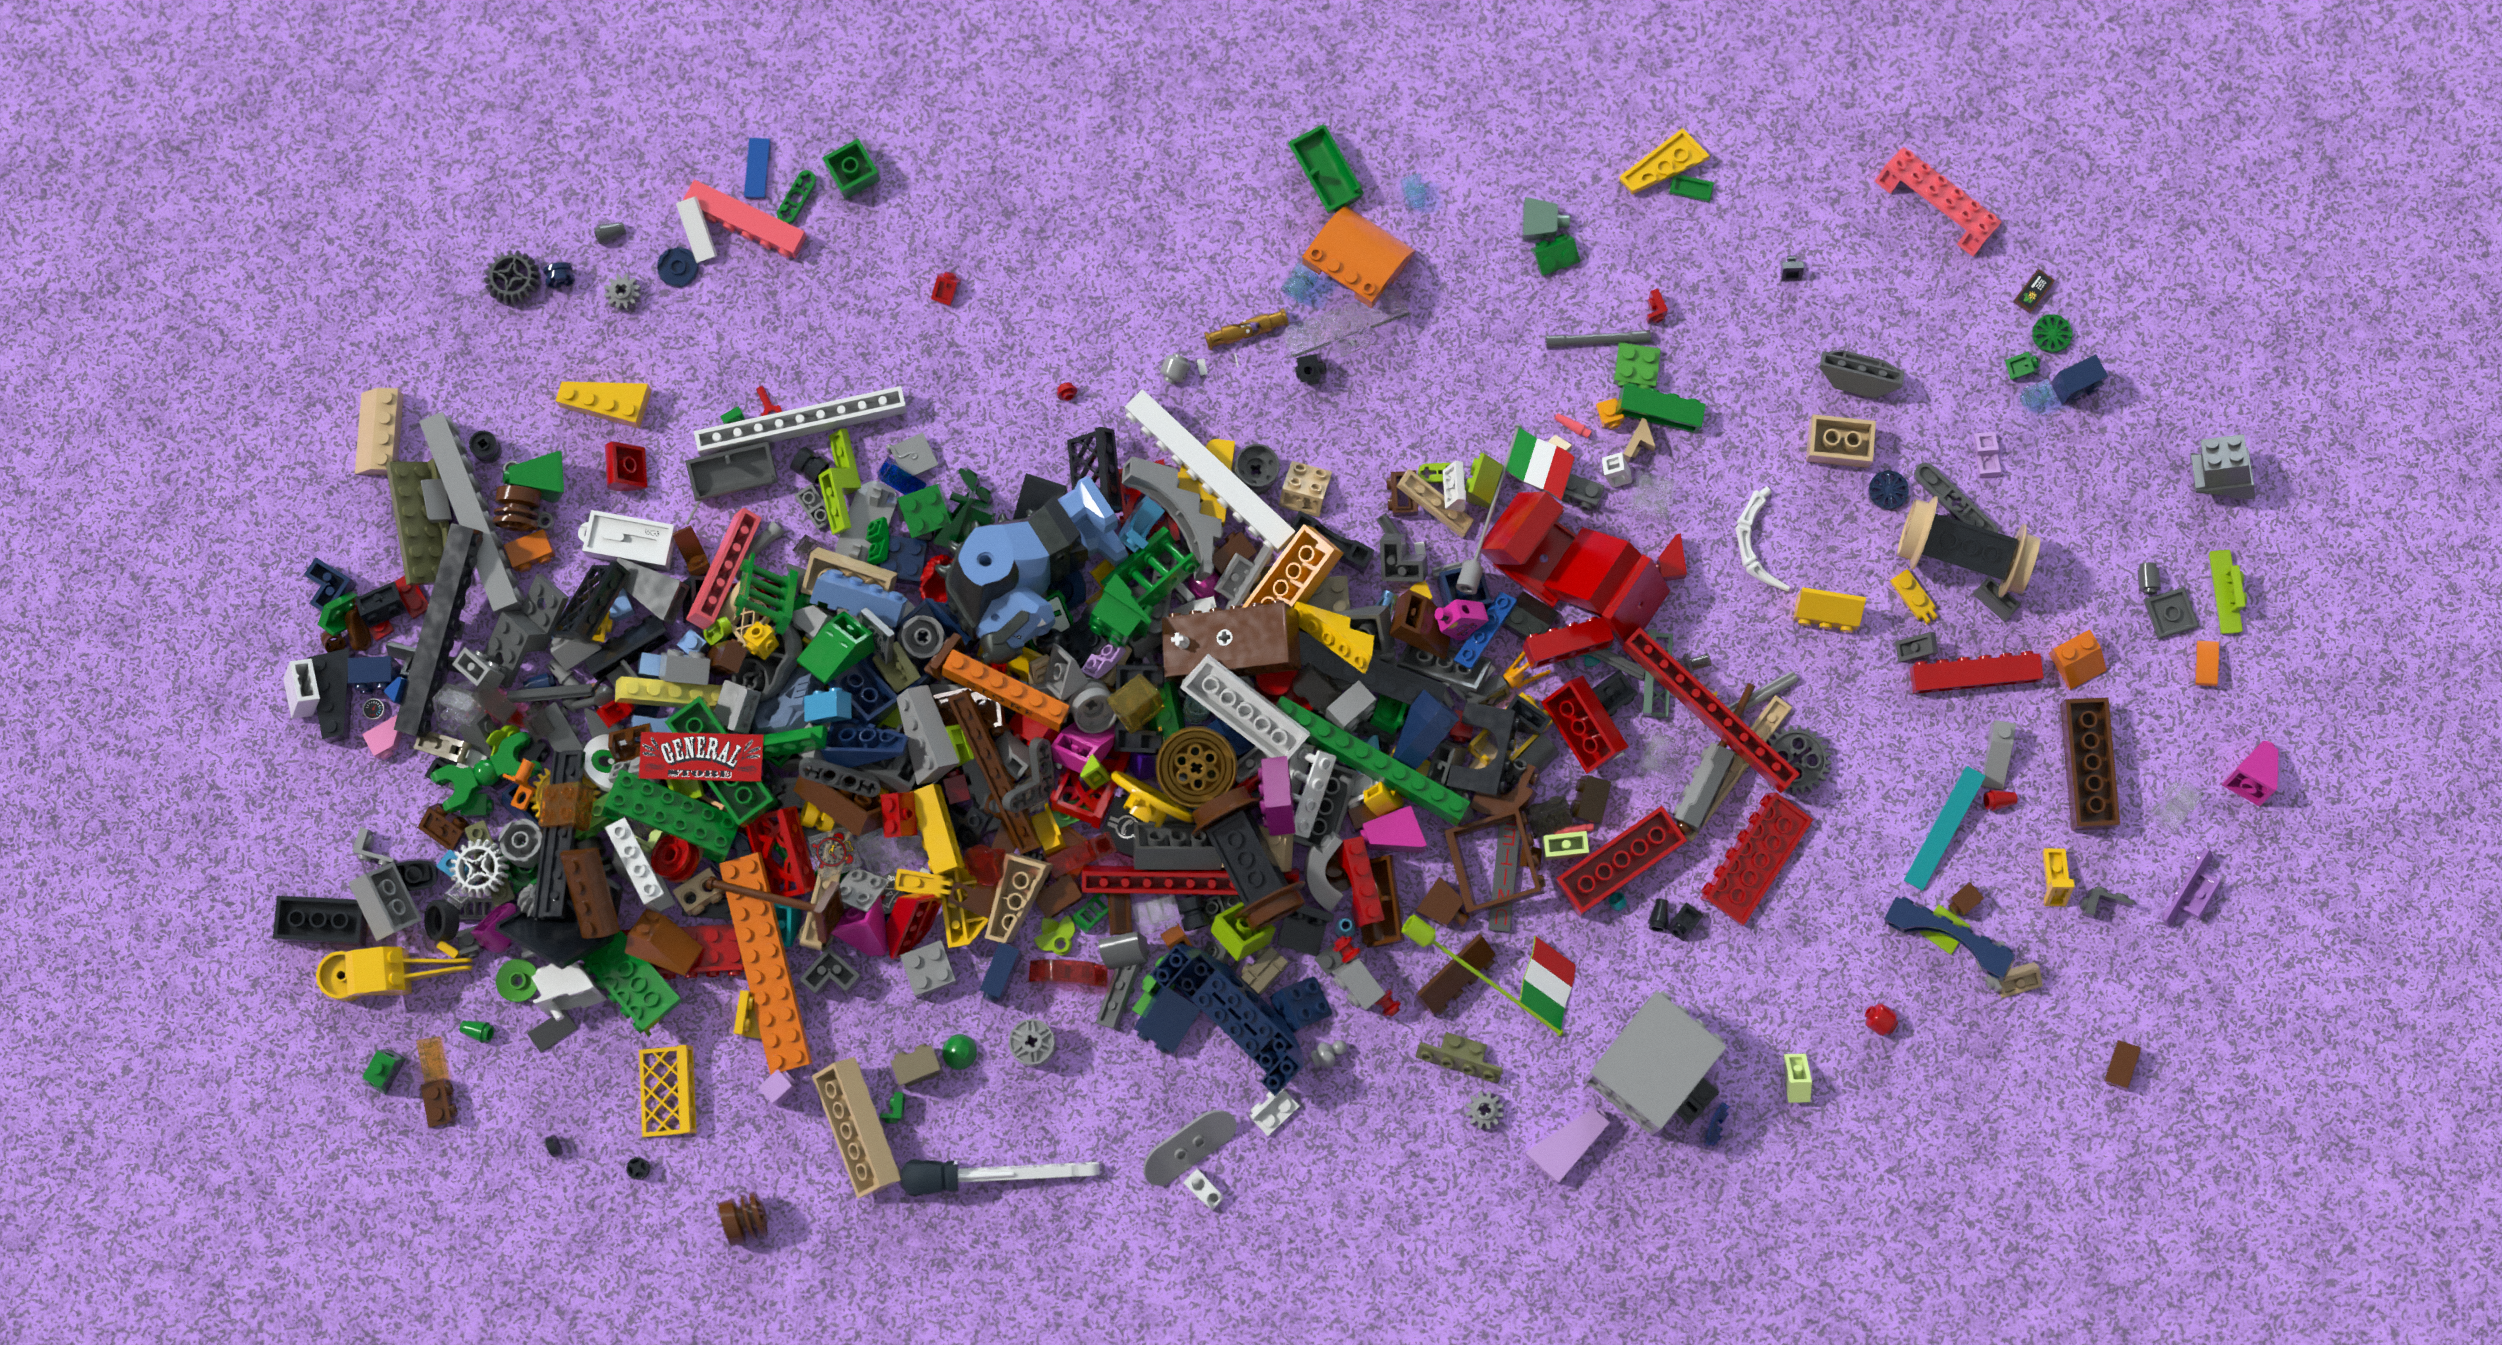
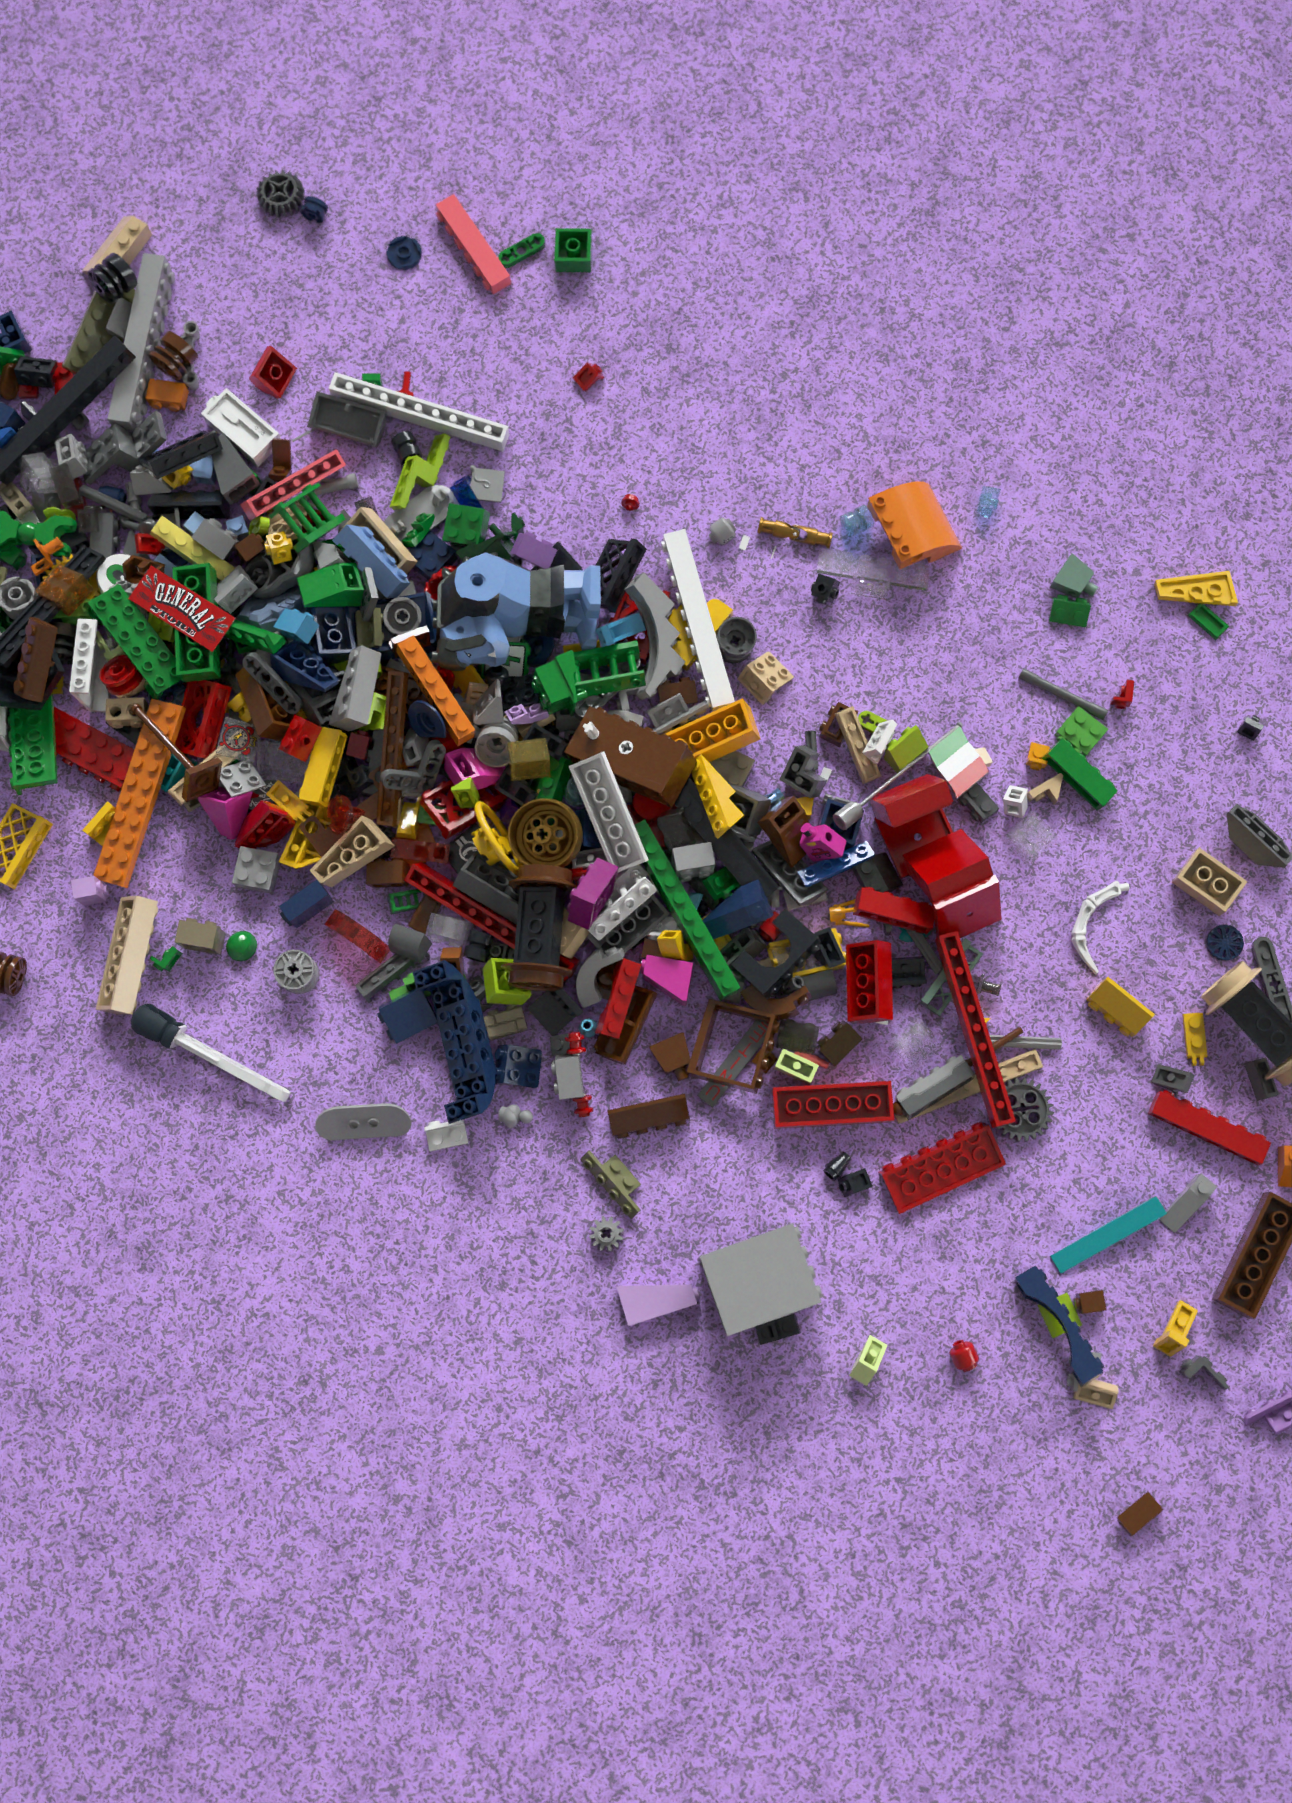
camera: 35 degrees right, 0 degrees up
(407, 465) = (112, 278): none -> black wheel
(485, 447) = (183, 302): black wheel -> none
(541, 474) = (205, 340): green slope -> none
(607, 232) = (370, 199): dark grey cone -> none
(609, 401) = (293, 320): yellow wedge -> none
(622, 299) = (359, 247): light grey gear -> none
(662, 943) = (72, 732): dark orange slope -> none
(696, 229) = (433, 231): white tile -> none
(757, 168) = (506, 213): blue tile -> none
(813, 506) = (391, 475): light grey slope -> none
(830, 968) = (182, 825): dark grey brick -> none
(1010, 497) = (533, 551): none -> medium lavender brick
(1014, 724) = (426, 720): none -> dark blue hat
(1055, 932) = (367, 899): lime plate -> none
(1203, 1189) = (355, 1162): white leg -> none
(1206, 588) = (641, 706): dark pink piece -> none
(1326, 169) = (930, 447): green container -> none
(1355, 553) = (769, 744): black arch -> none
(1490, 693) = (810, 915): dark grey slope -> none
(1544, 984) = (715, 1163): flag -> none
(1574, 426) = (1003, 749): coral animal -> none
(1617, 897) = (811, 1131): teal hinge -> none
(1672, 560) = (1016, 897): red slope -> none
(1713, 1131) = (775, 1361): clear blue slope -> none
(1997, 800) = (1167, 1239): red cone -> none

